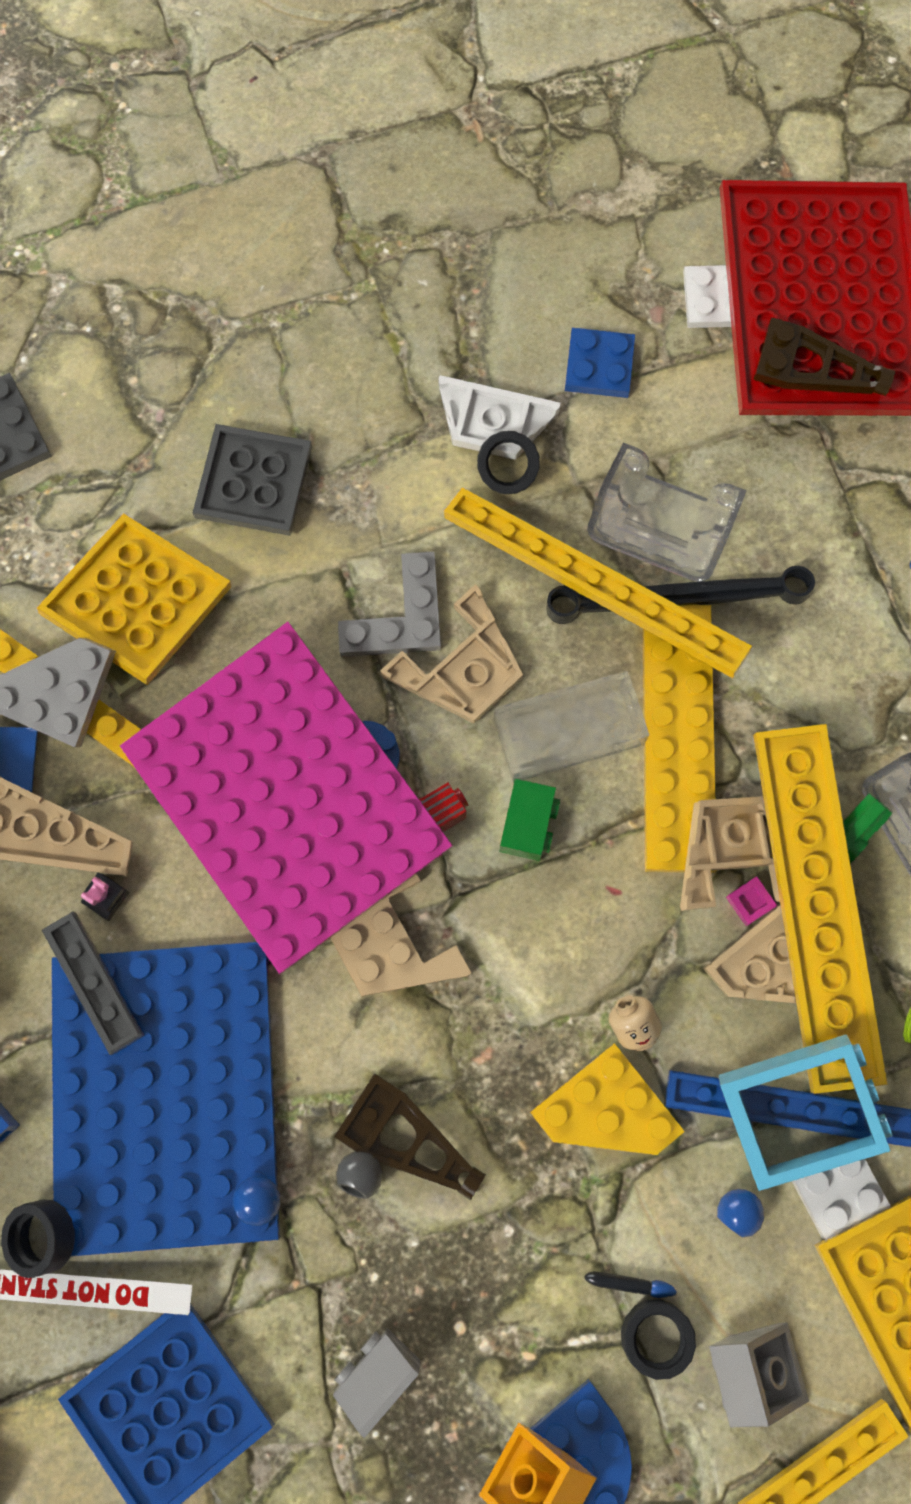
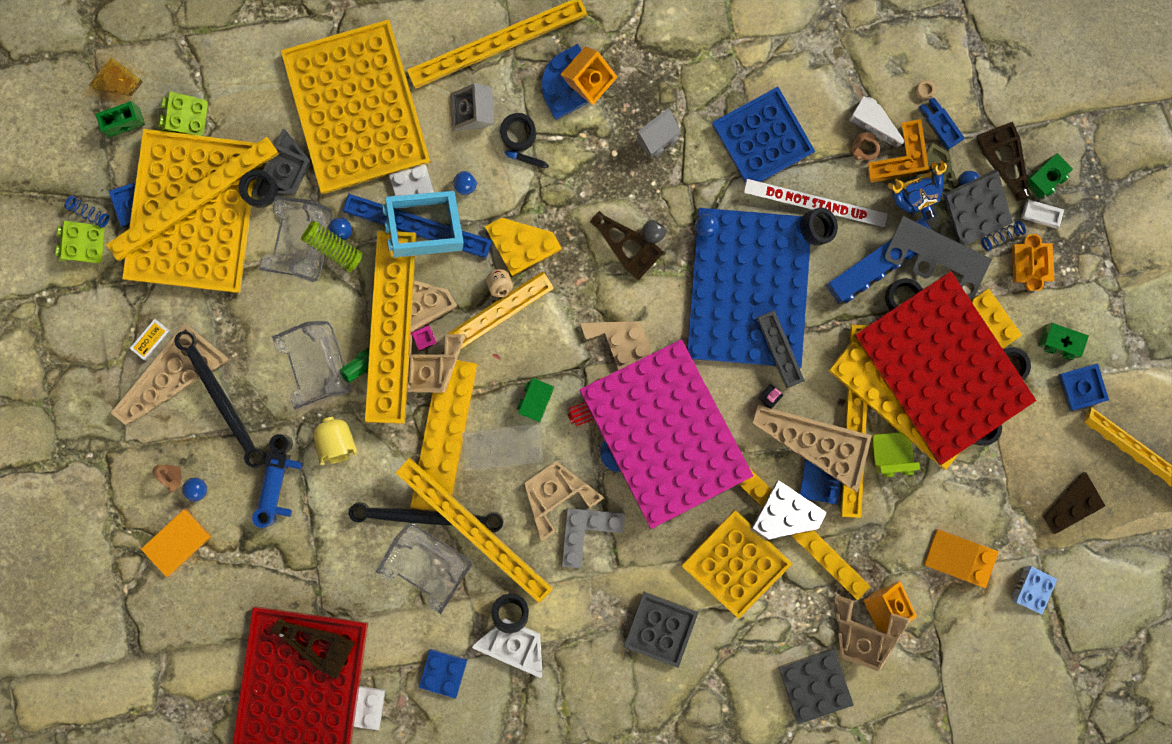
camera: 170 degrees left, 10 degrees up
(618, 977) = (503, 308): none -> yellow plate
(870, 690) = (334, 441): none -> light yellow cylinder

